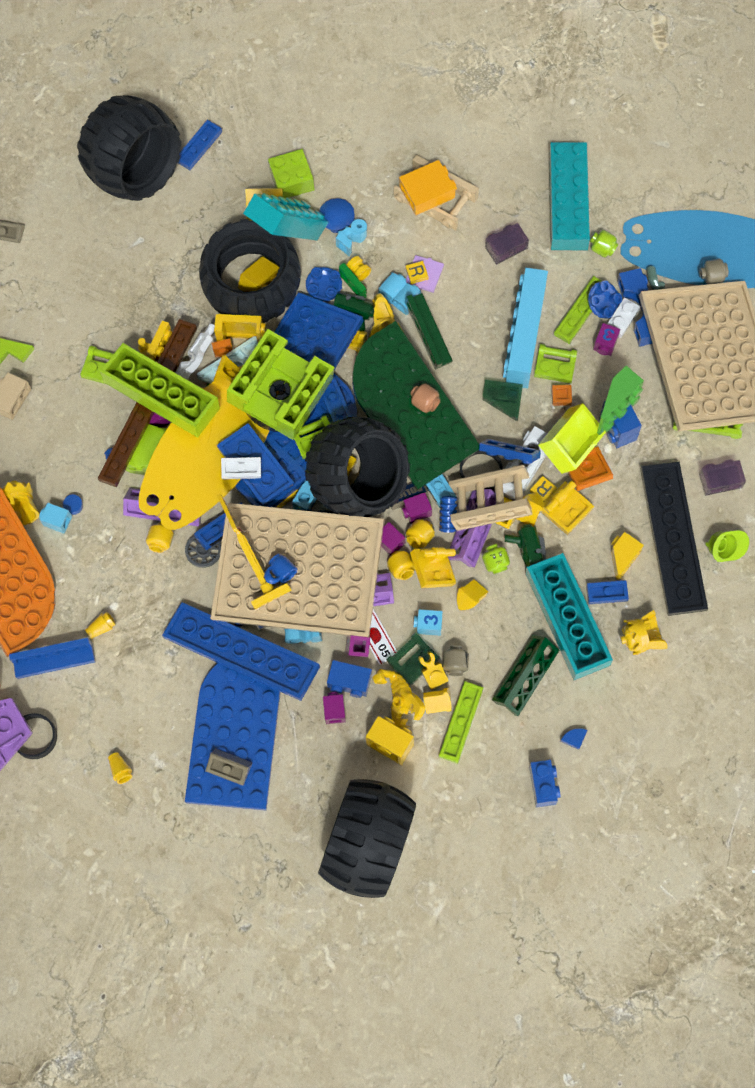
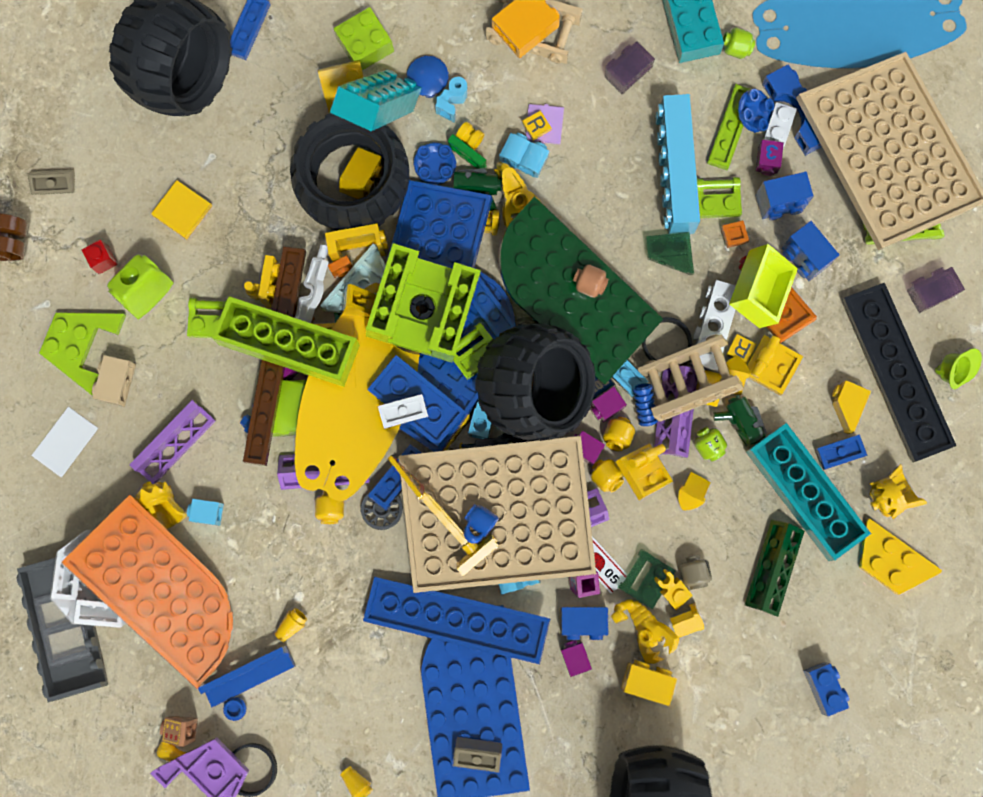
camera: 10 degrees left, 10 degrees up
(26, 296) = (99, 257): none -> red brick
(34, 683) = (234, 709): none -> blue plate
(43, 449) = (166, 436): none -> medium lavender fence
(52, 325) = (139, 285): none -> lime piece
(73, 504) = (220, 490): blue tile -> none
(104, 275) = (181, 209): none -> yellow tile
(428, 331) = (568, 193): dark green fence -> none
(428, 622) = (654, 534): medium azure brick -> none
(461, 722) = (717, 638): lime tile -> none
(510, 451) = (697, 317): blue plate -> none
(574, 738) = (845, 626): blue tile -> none
(605, 367) = (784, 196): none -> blue brick
(622, 393) = (812, 232): bright green slope -> none
(630, 693) = (893, 561): none -> yellow wing
(653, 280) = (803, 73): sand green arm -> none
(714, 271) = (870, 48): dark tan head -> none

